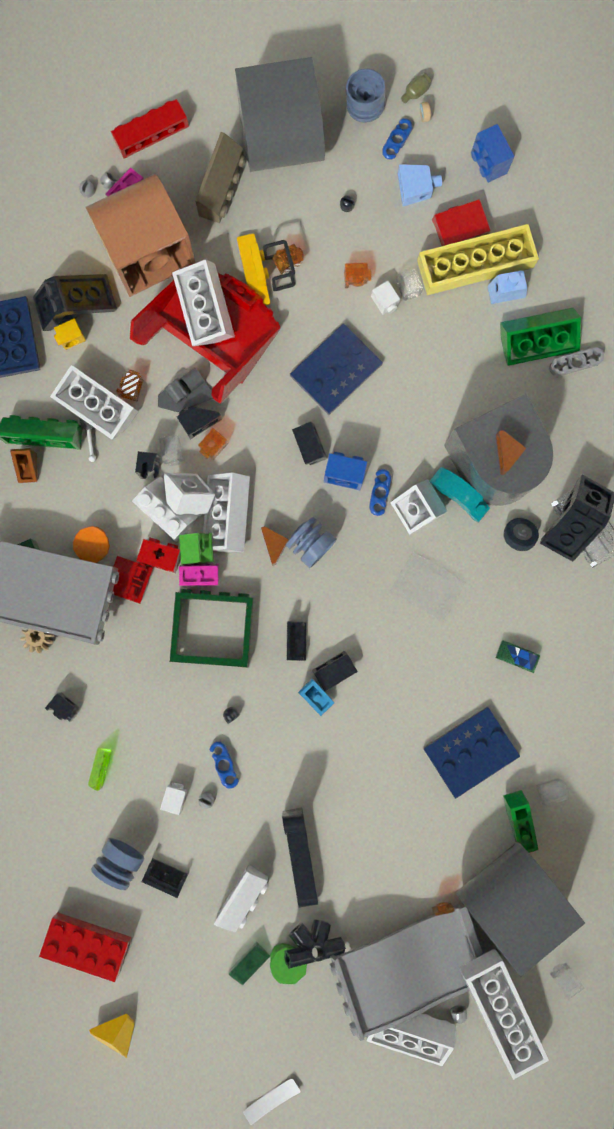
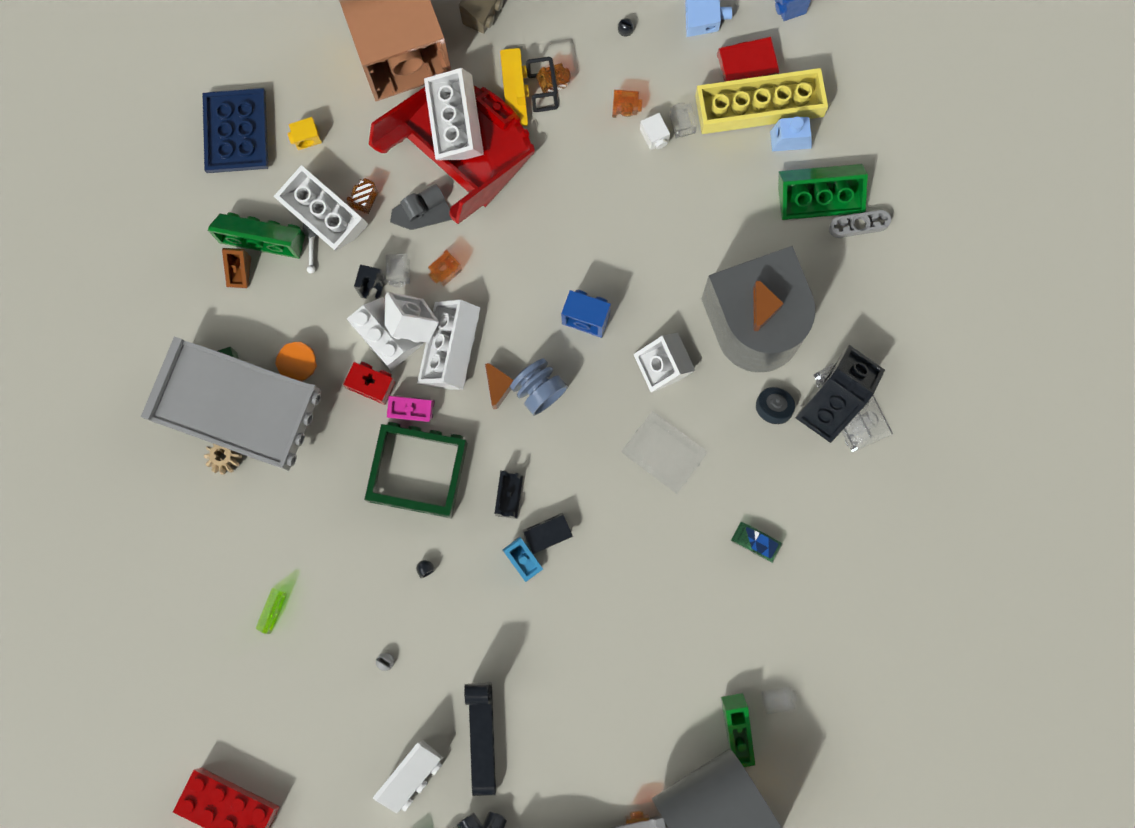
camera: 15 degrees right, 5 degrees down
(62, 707) = (239, 537): black brick -> none
(68, 296) = (307, 92): black bracket -> none
(116, 865) = (272, 723): sand blue wheel -> none
(132, 579) = (335, 405): red hinge -> none
(164, 878) = (326, 742): black hinge -> none
(174, 798) = (349, 654): white brick -> none
(192, 546) = (406, 376): bright green piece -> none
(197, 420) = (431, 240): black slope -> none
(224, 774) = (411, 613): blue piece -> none
(309, 443) = (551, 279): black hinge -> none
(336, 369) = (591, 203): dark blue plate -> none
(374, 499) = (616, 349): blue piece -> none
(460, 492) = (713, 352): teal arch -> none
(471, 752) = (691, 644): dark blue plate -> none

